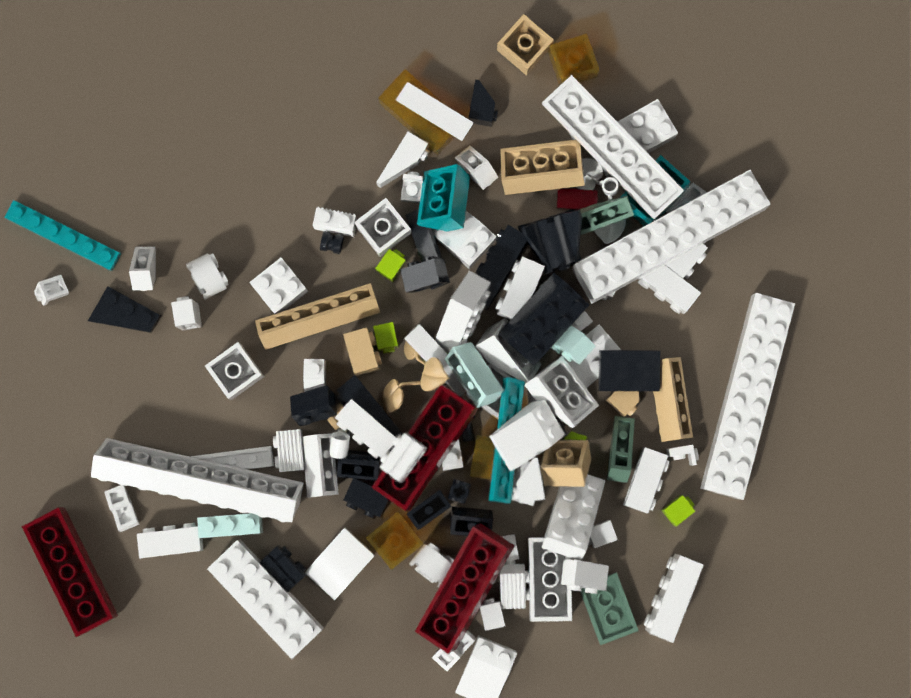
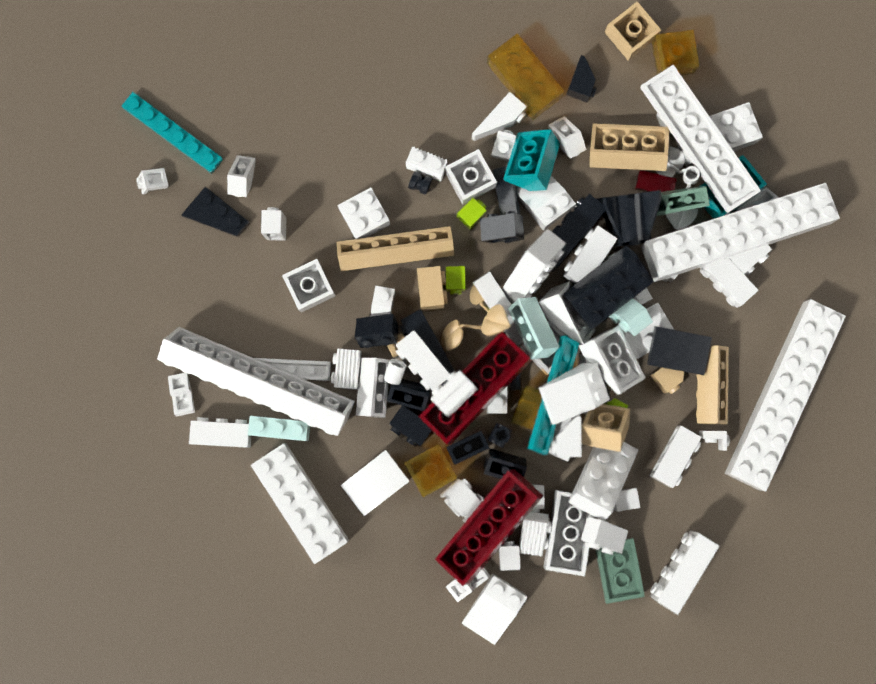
camera: 10 degrees right, 0 degrees up
(69, 571) = (122, 444): dark red brick -> none
(207, 276) = (299, 192): white brick -> none
(283, 567) = (321, 477): black brick -> none
(434, 111) = (538, 77): white sticker -> none
(621, 449) = (657, 424): sand green slope -> none
(679, 510) = (702, 490): lime brick -> none

